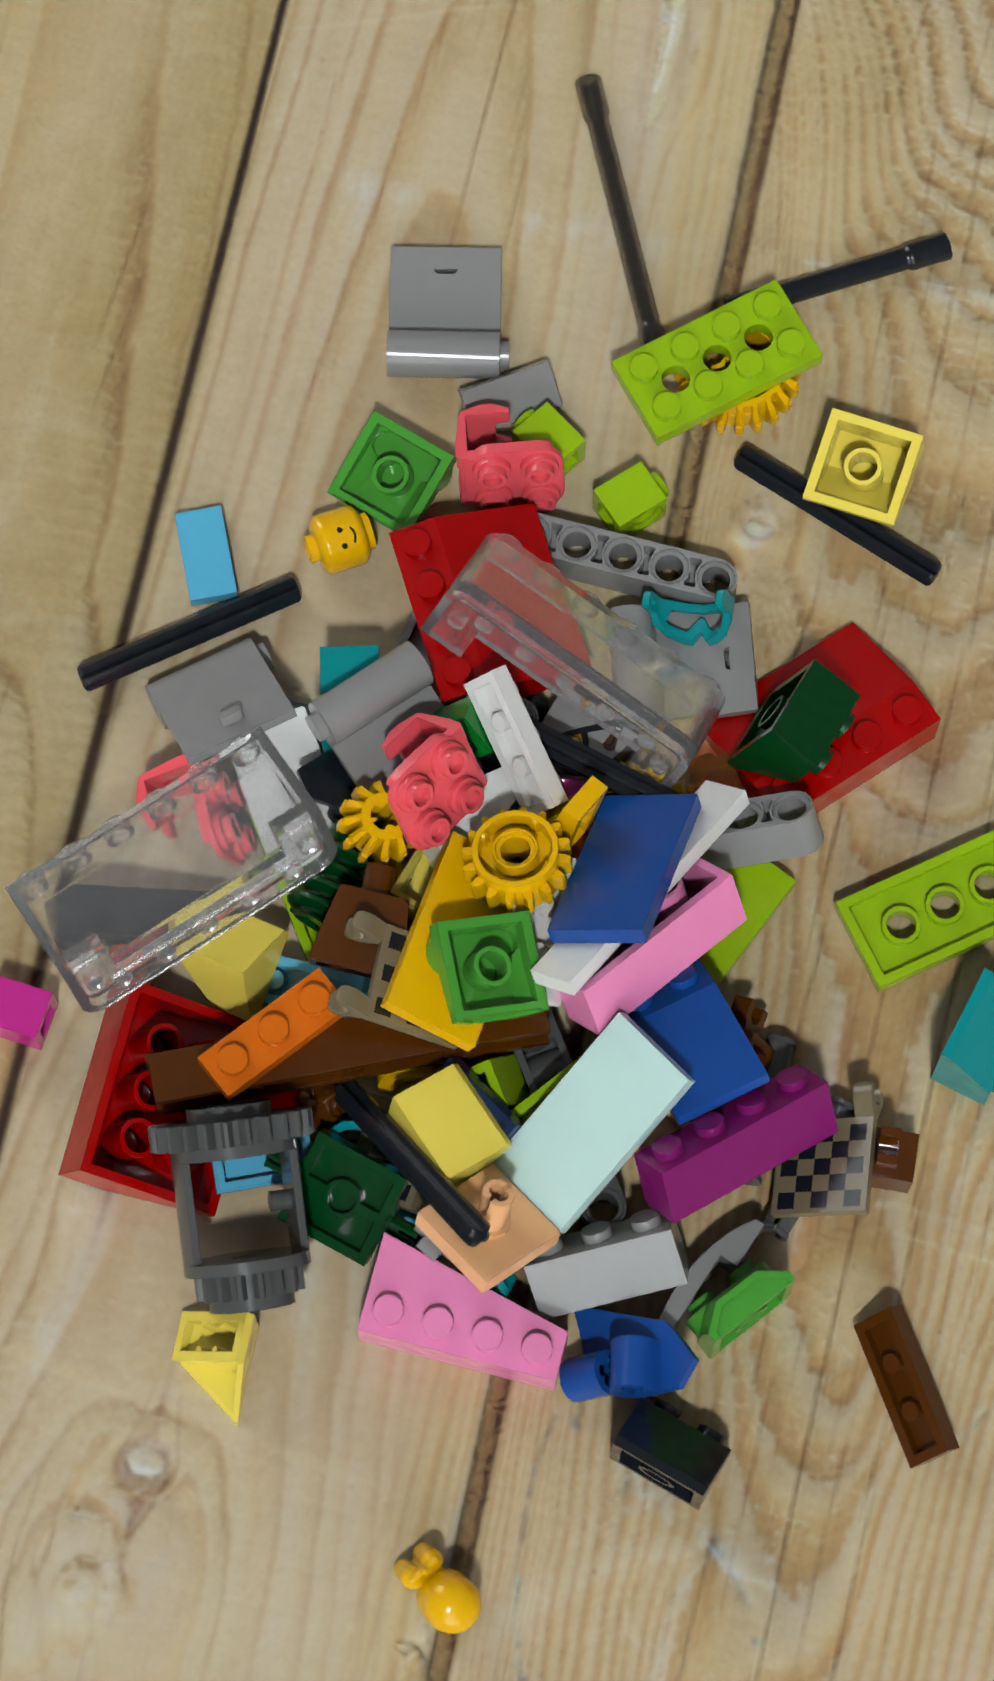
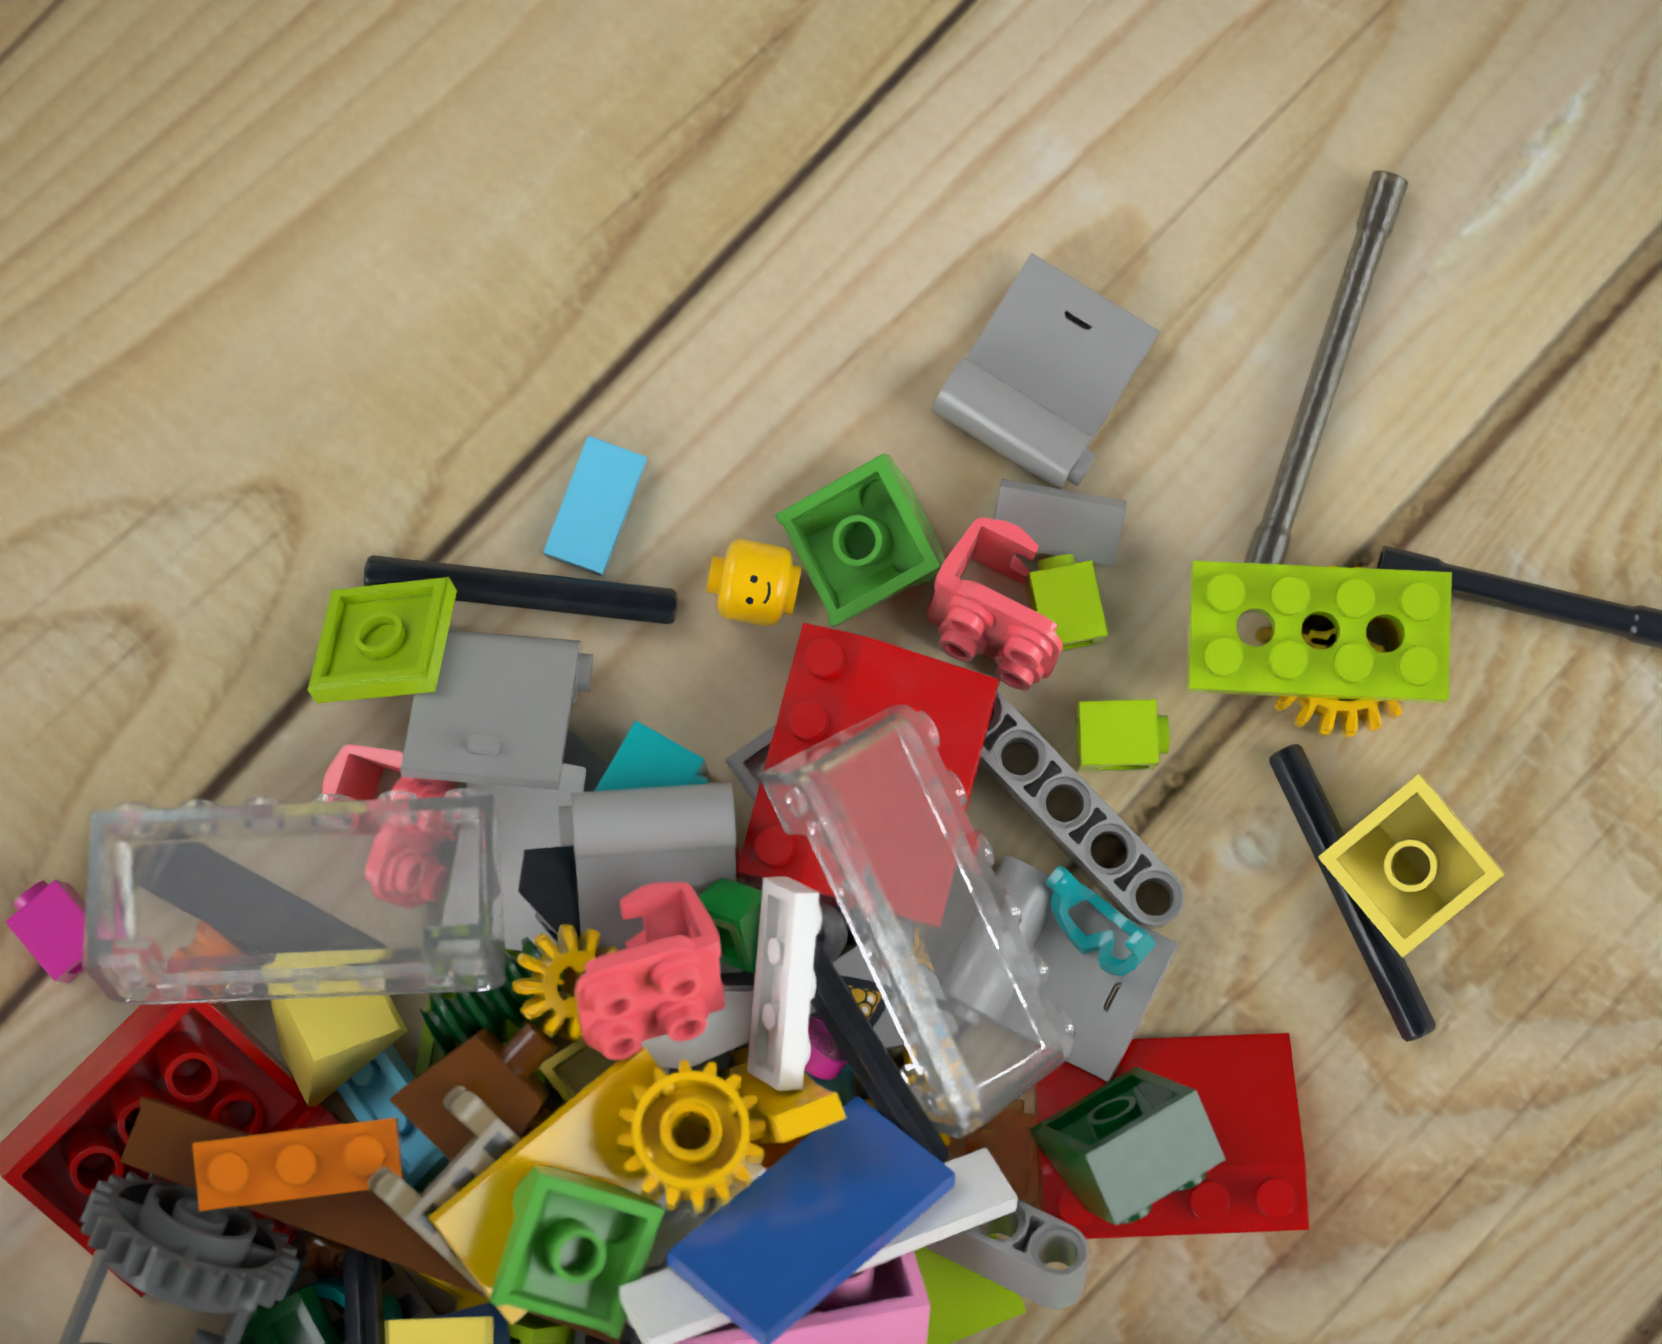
camera: 30 degrees right, 10 degrees up
(121, 705) = (382, 640): none -> lime tile

